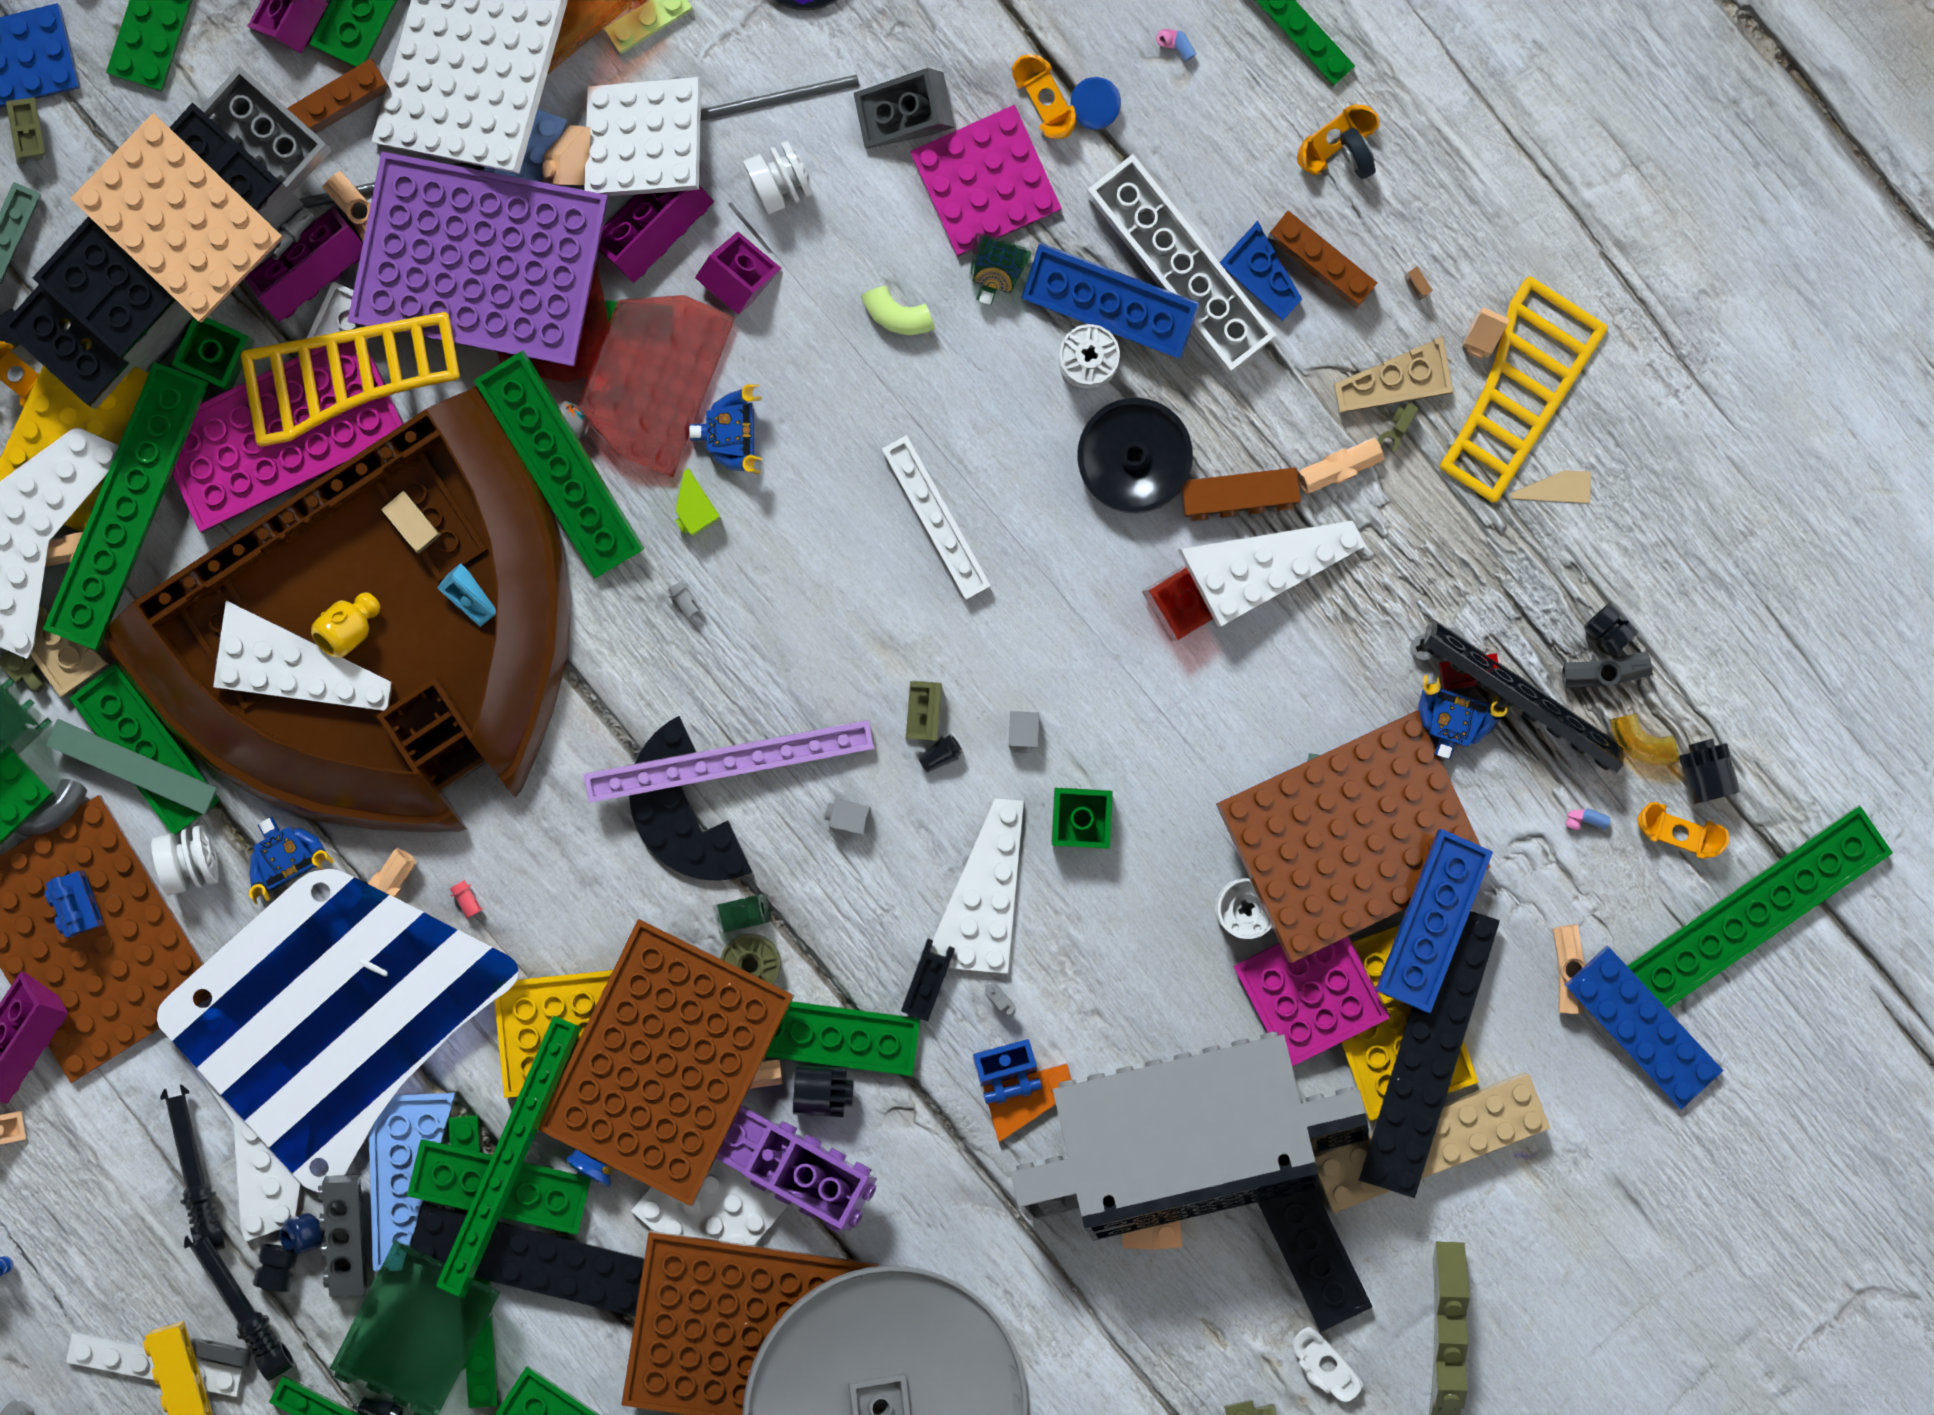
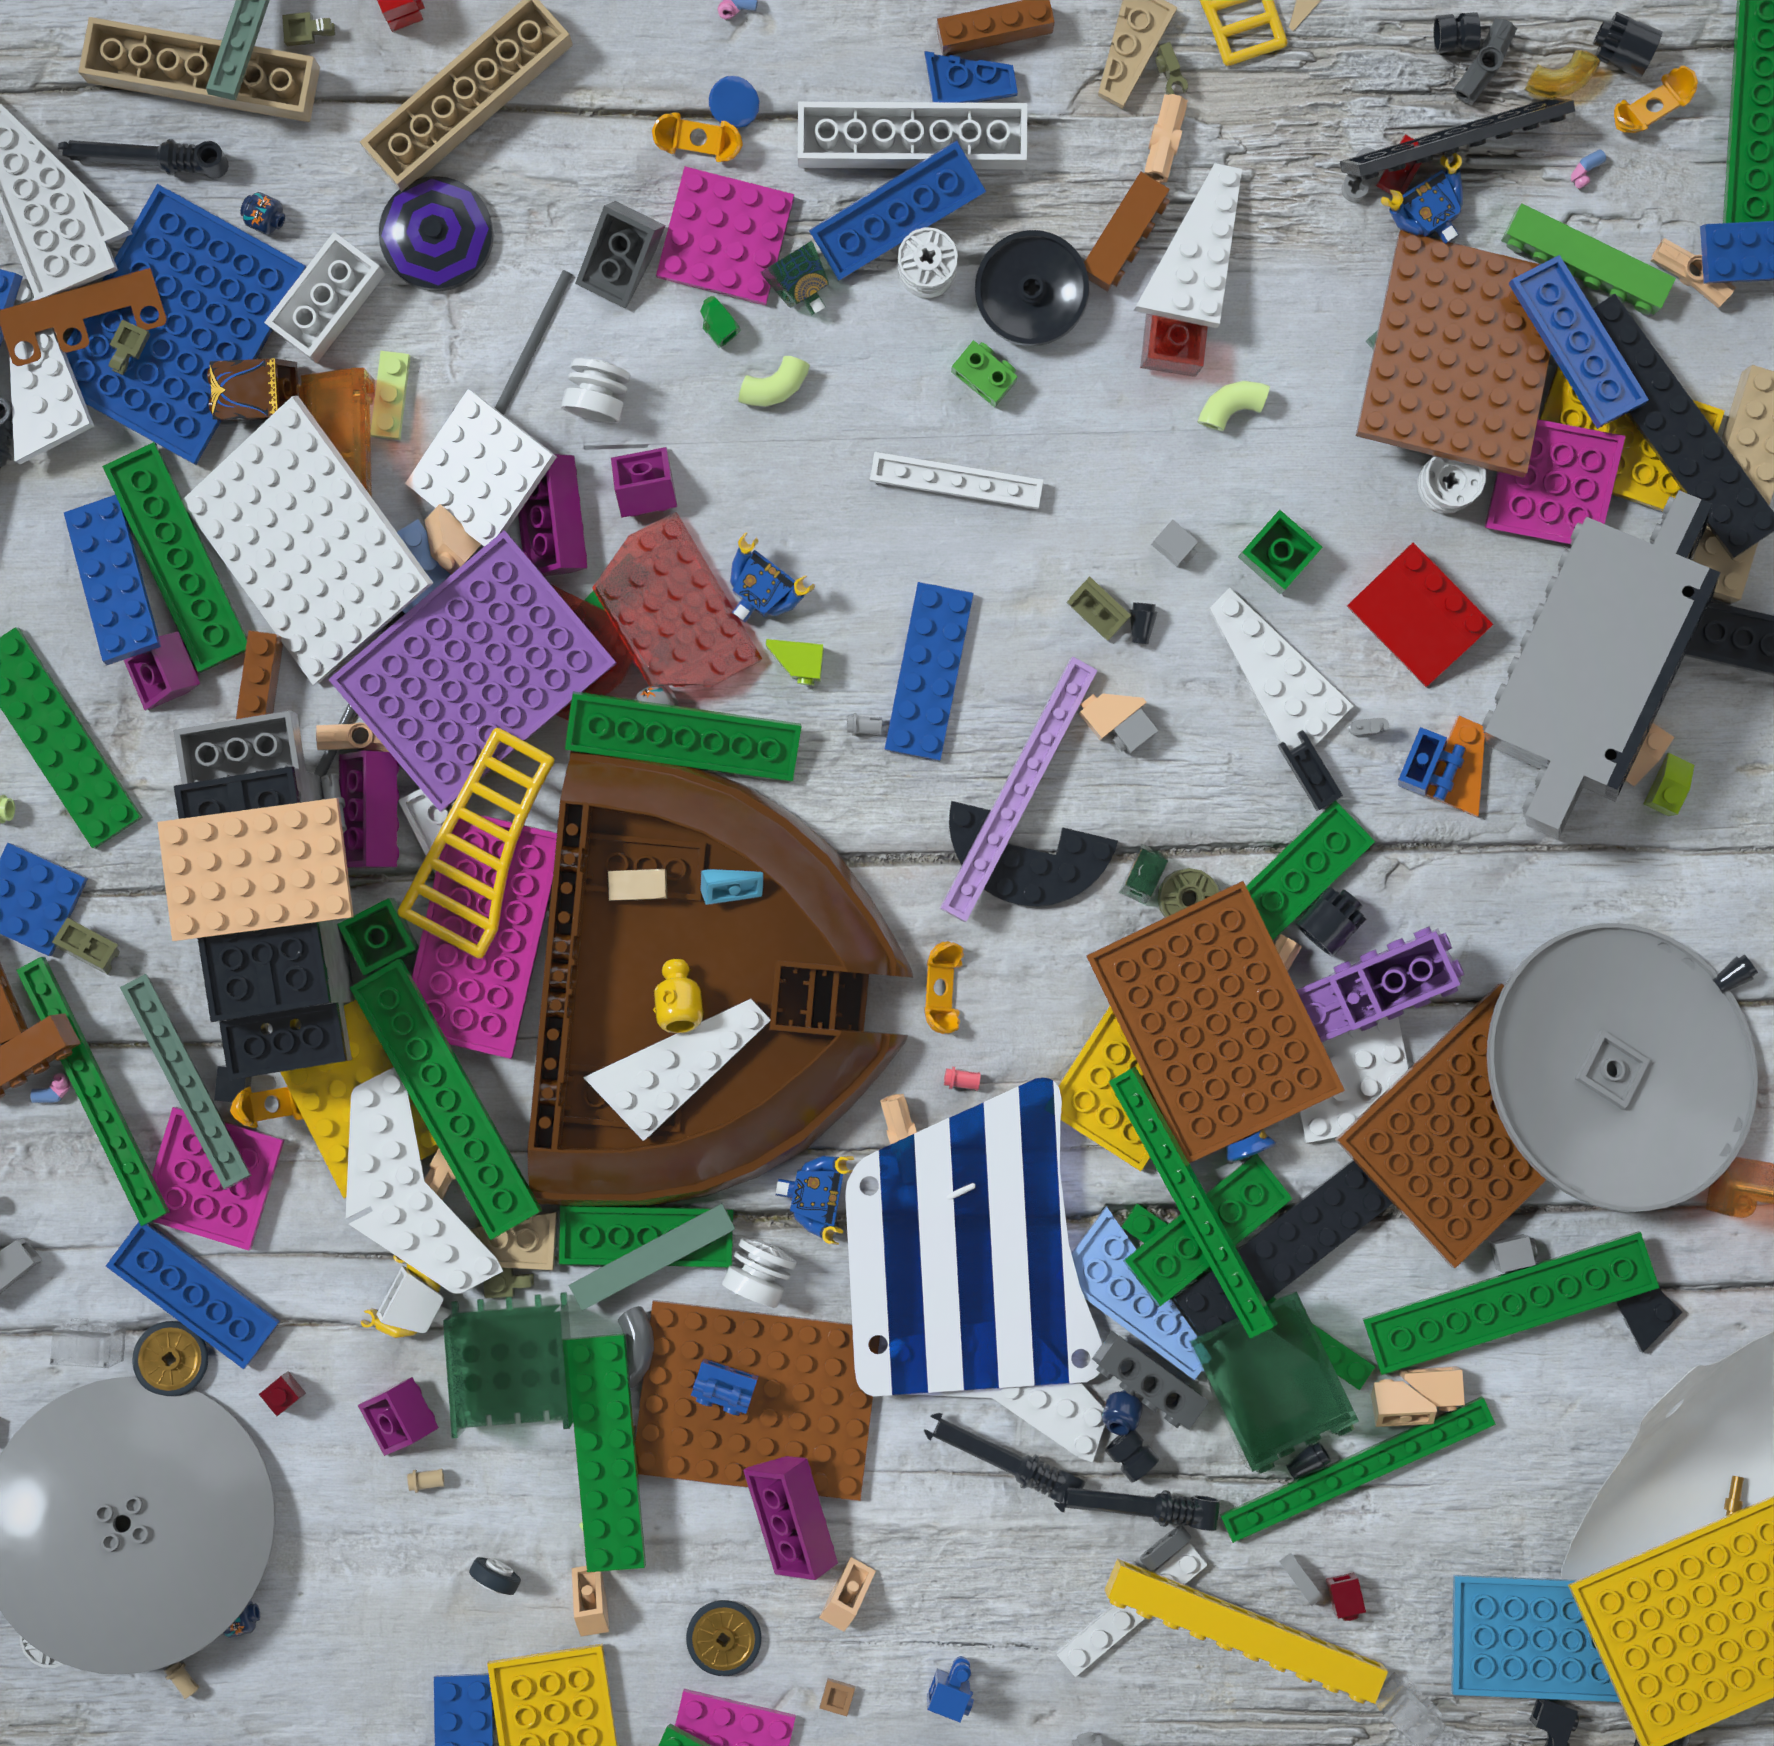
camera: 50 degrees left, 0 degrees up
(505, 837) = (941, 965): none -> light orange piece
(768, 616) = (929, 671): none -> blue plate
(847, 783) = (1108, 711): none -> light nougat slope
(911, 230) = (718, 322): none -> green rock
(1038, 472) = (984, 372): none -> bright green brick
(1121, 968) = (1419, 614): none -> red slope
(1145, 1275) = (1670, 786): none -> lime slope
(1174, 683) = (1231, 399): none -> yellowish green cylinder
(1512, 877) = (1588, 259): none -> bright green brick

